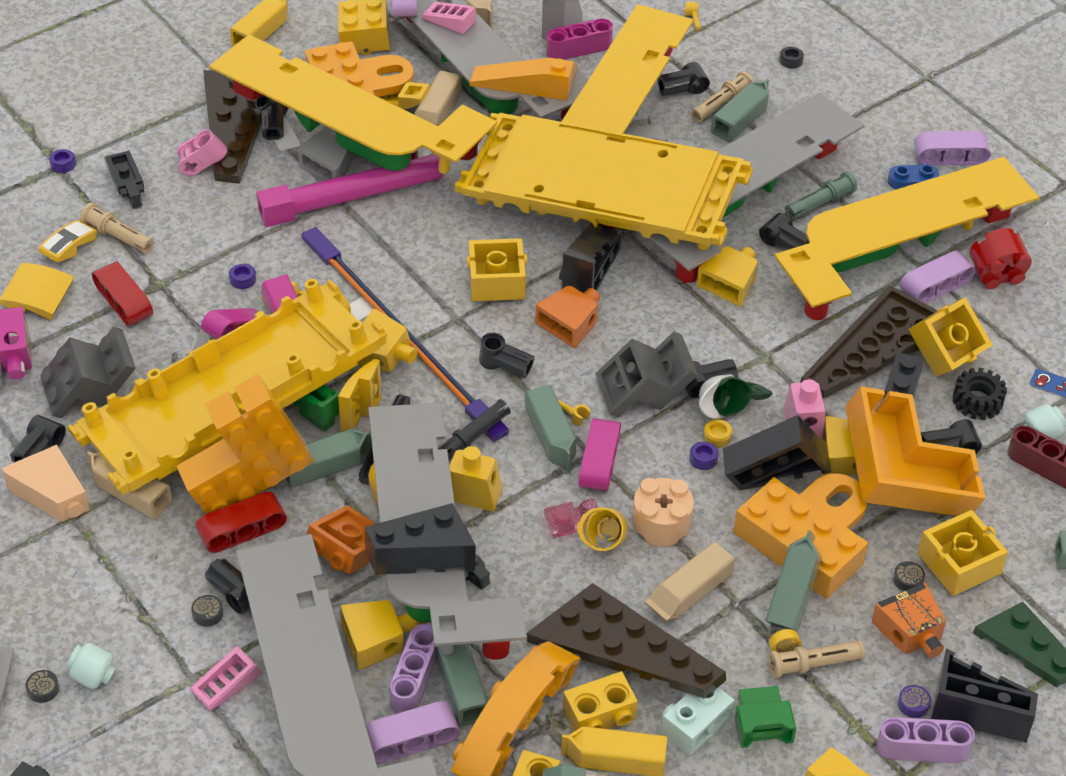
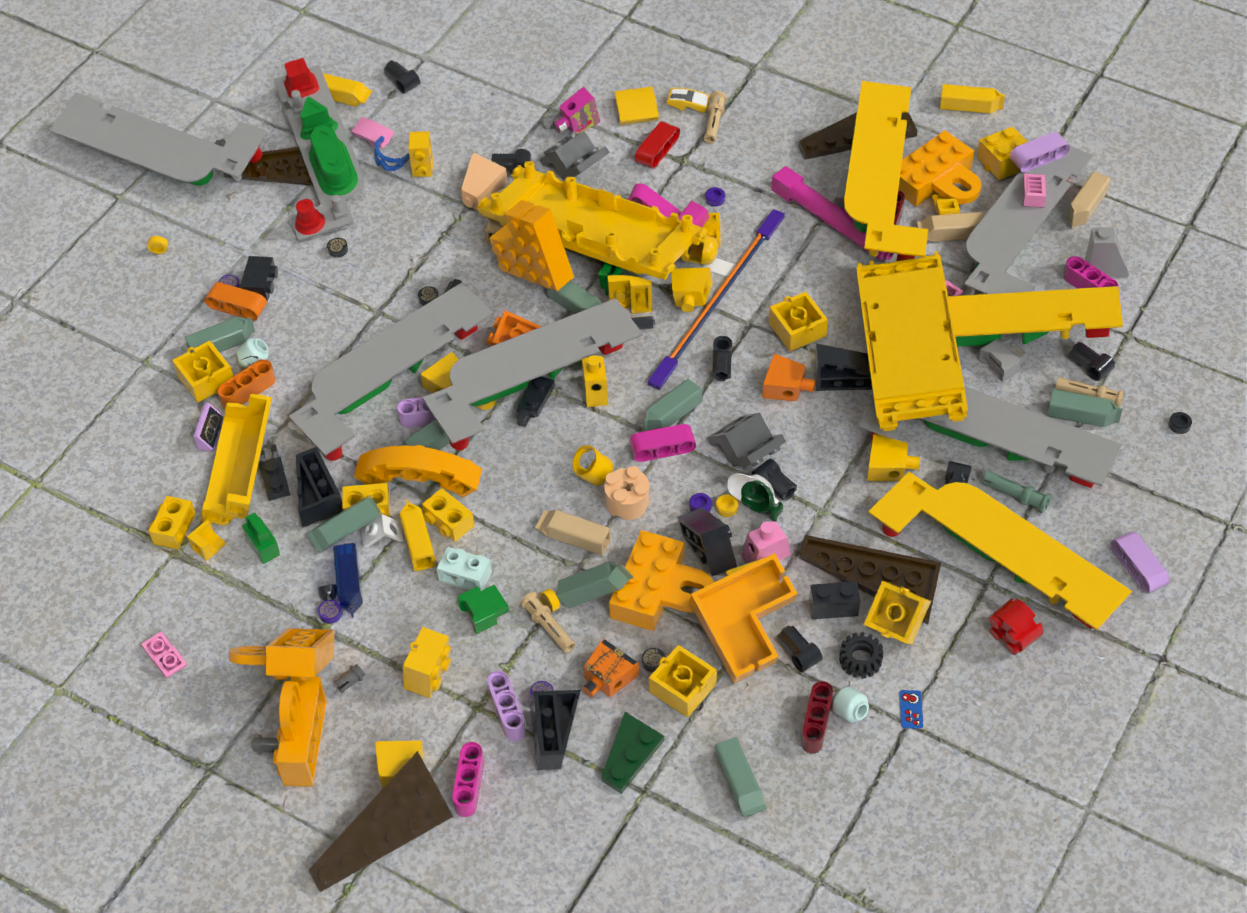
camera: 70 degrees right, 5 degrees up
(62, 161) = (762, 65): dark purple tile -> none
(90, 665) = (357, 259): light aqua head -> none
(126, 177) = (764, 100): black hinge -> none
(202, 150) = (808, 125): bright pink piece -> none
(240, 680) = (385, 320): bright pink slope -> none
(241, 522) = (501, 282): red beam -> none
(412, 731) = (381, 425): lavender beam -> none
(420, 541) = (496, 359): black wedge -> none
(464, 437) = (634, 364): black pin -> none
(533, 77) = (1000, 262): light orange wedge -> none
(564, 517) = (602, 444): clear pink plate -> none
(577, 413) = (697, 416): yellow hand -> none
(623, 640) = (503, 504): dark brown wing -> none
(691, 9) = (1187, 339): yellow hand -> none
(907, 175) = (1087, 546): blue plate -> none
(938, 277) = (972, 592): lavender beam -> none

